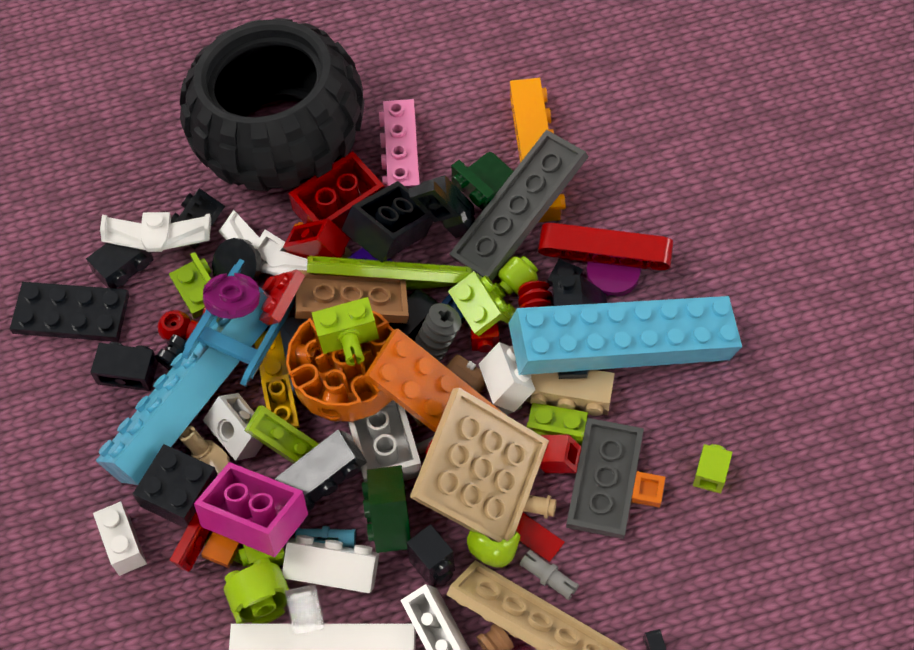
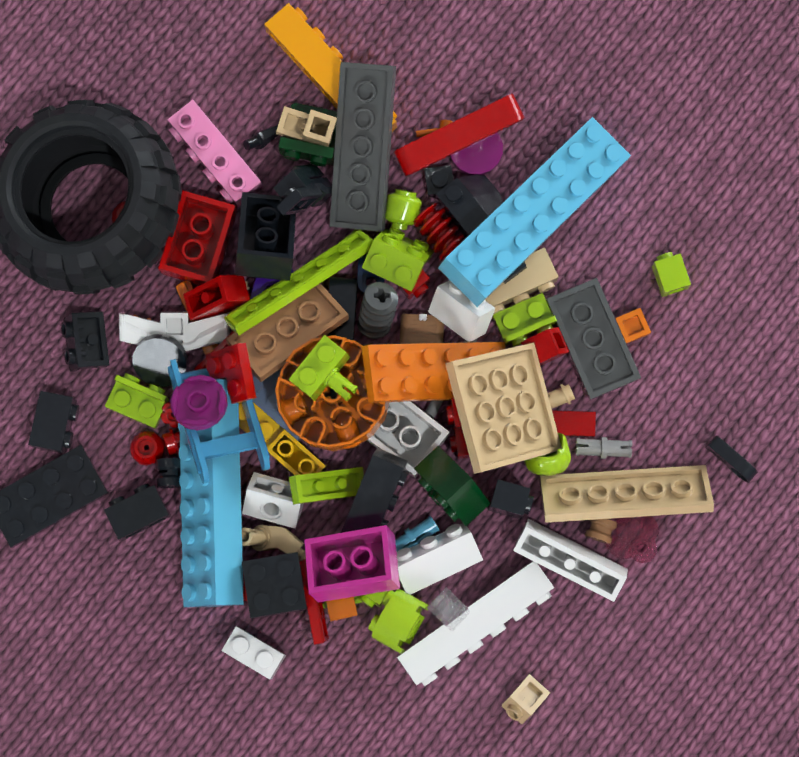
camera: 35 degrees left, 20 degrees up
(155, 232) = (70, 381): white plate -> none
(445, 161) = (260, 139): none -> black bar
(489, 167) = (305, 127): none -> tan brick

